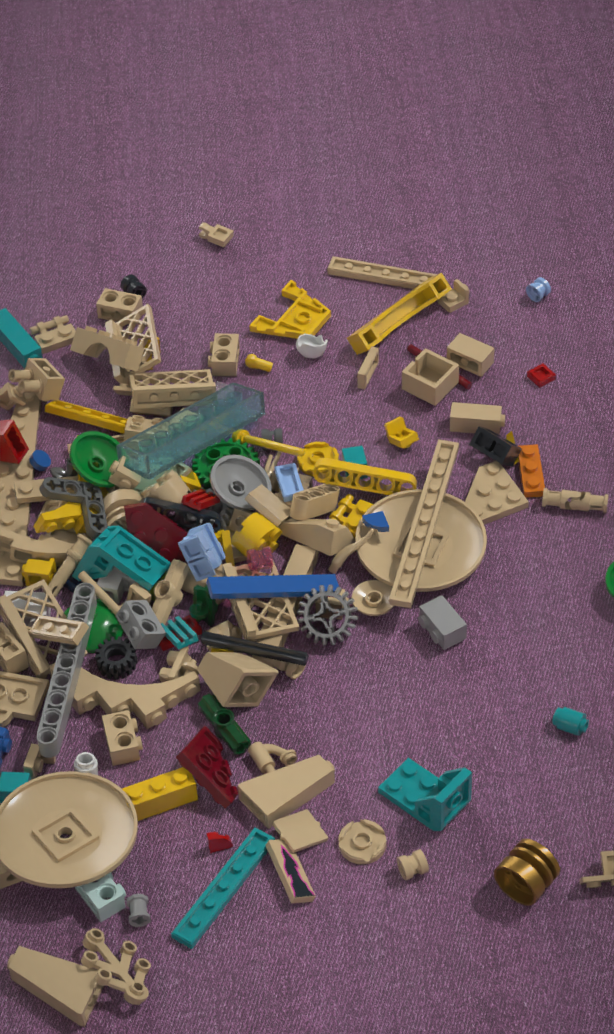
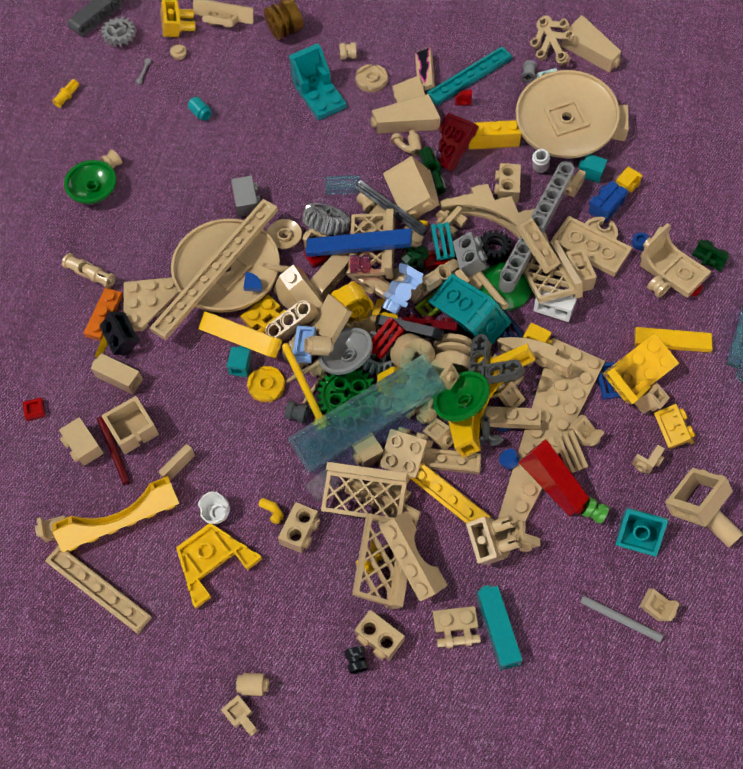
camera: 160 degrees left, 15 degrees up
(74, 556) = (505, 328): tan pin -> none
(215, 252) = (252, 684): none -> tan brick
(269, 472) = (318, 345): none -> tan brick
(332, 680) = (339, 184): none -> clear light blue tile
(399, 434) = (186, 377): yellow bracket -> none

